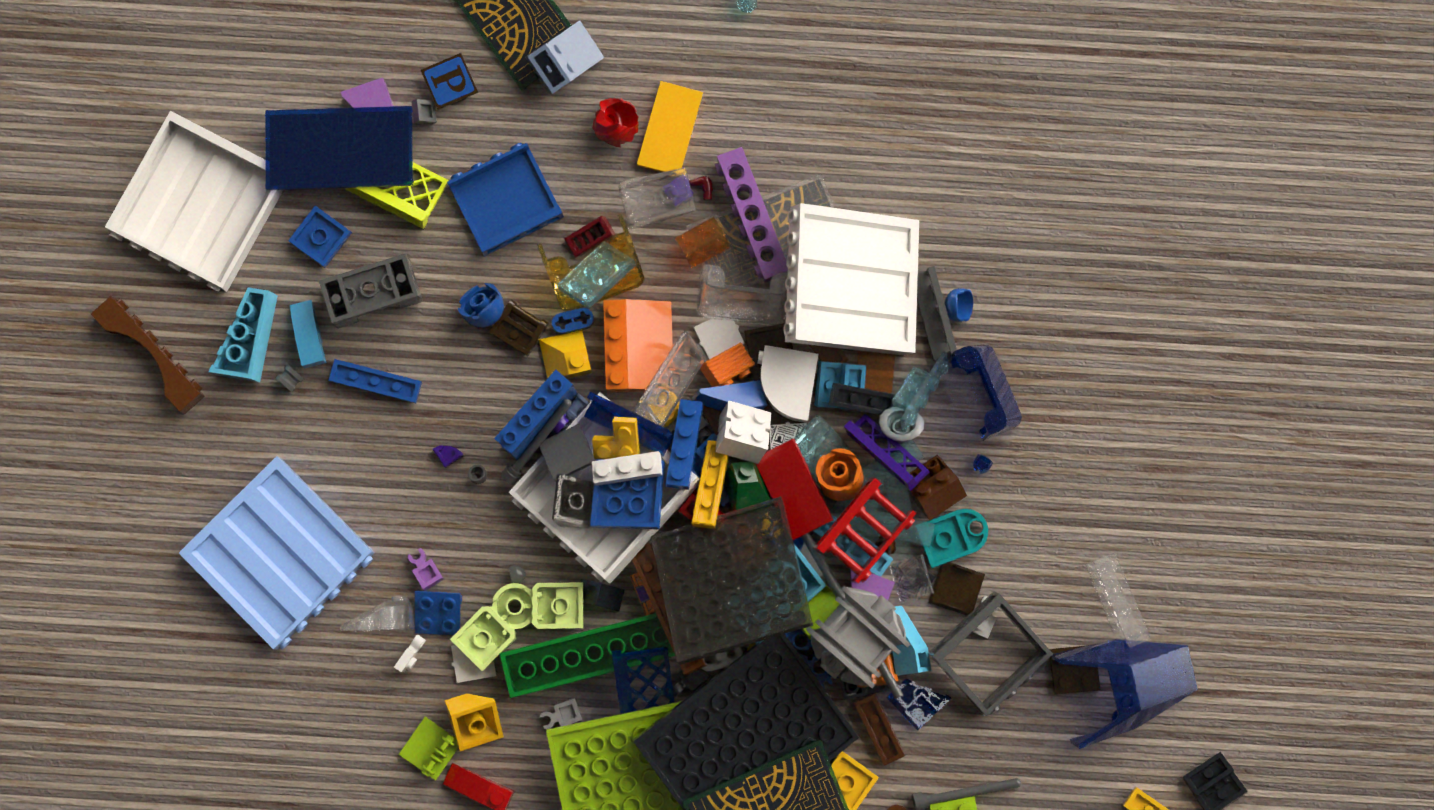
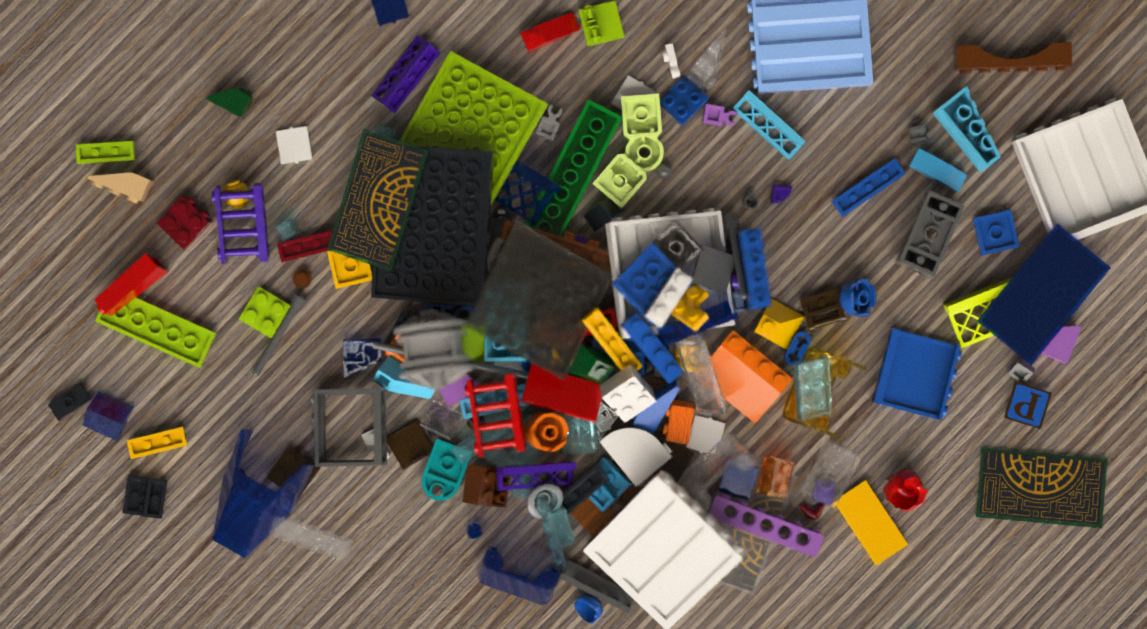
camera: 130 degrees right, 5 degrees up
(385, 517) = (772, 118): none -> medium azure fence
(473, 720) = (594, 65): yellow slope -> none
(564, 57) = (977, 494): slope -> none
(586, 229) = (838, 423): dark red slope -> none
(737, 269) = (738, 482): none -> clear blue piece
(879, 729) = (365, 315): reddish brown plate -> none

